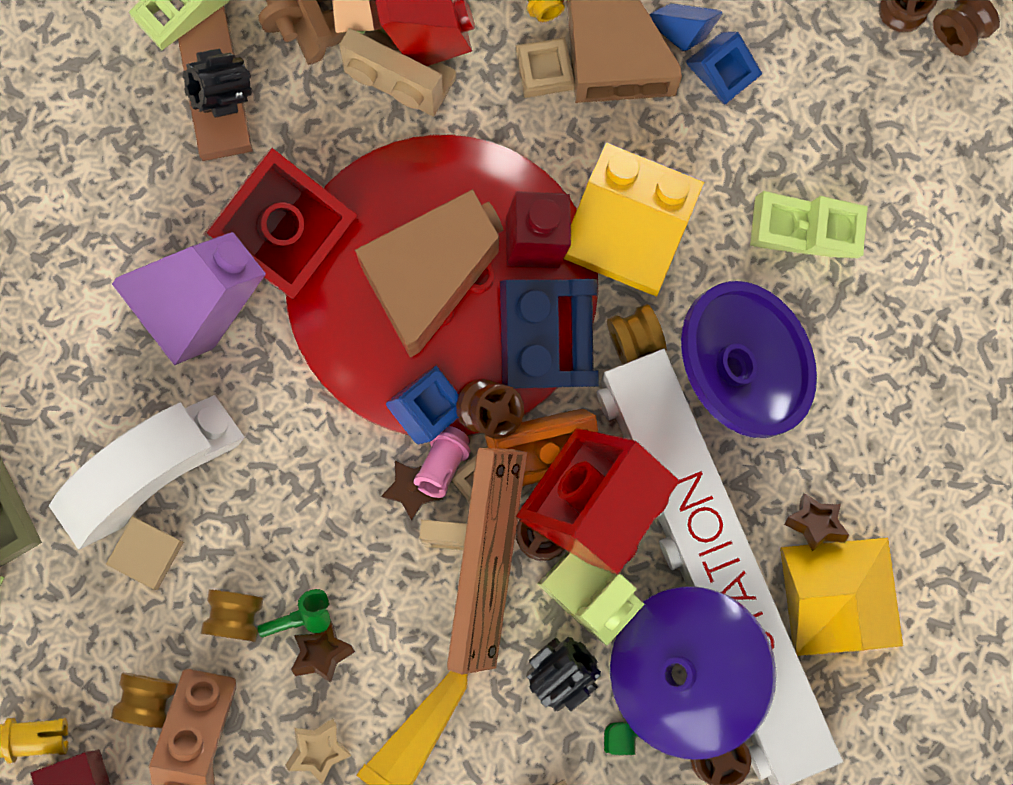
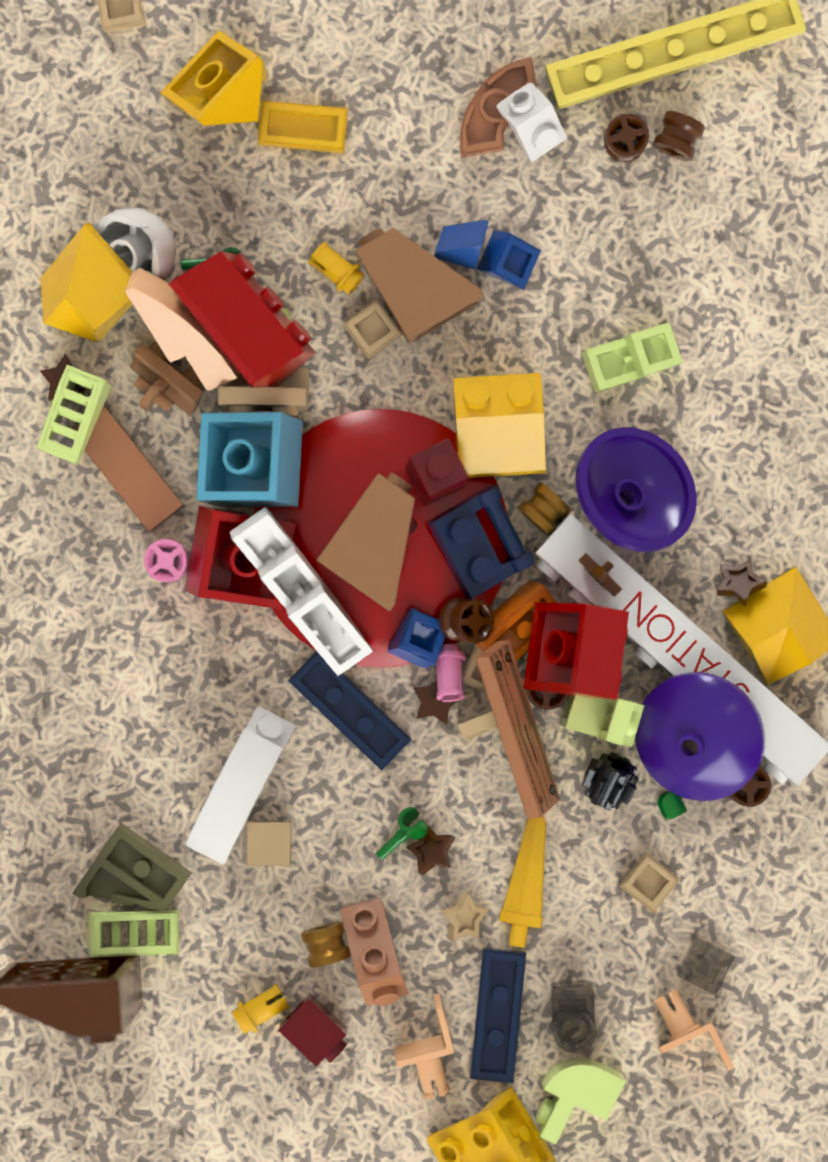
camera: 25 degrees left, 10 degrees up
(192, 294) = (204, 643): medium lavender slope -> none
(196, 182) = (156, 559): none -> bright pink wheel
(217, 83) = (139, 474): black gear -> none
(232, 615) = (356, 856): pearl gold wheel -> none
(312, 451) = (350, 711): none -> dark blue tile
(323, 287) = (301, 591): none -> white slope
(344, 124) = (249, 459): none -> medium azure brick
(666, 425) = (600, 574): none -> reddish brown piece

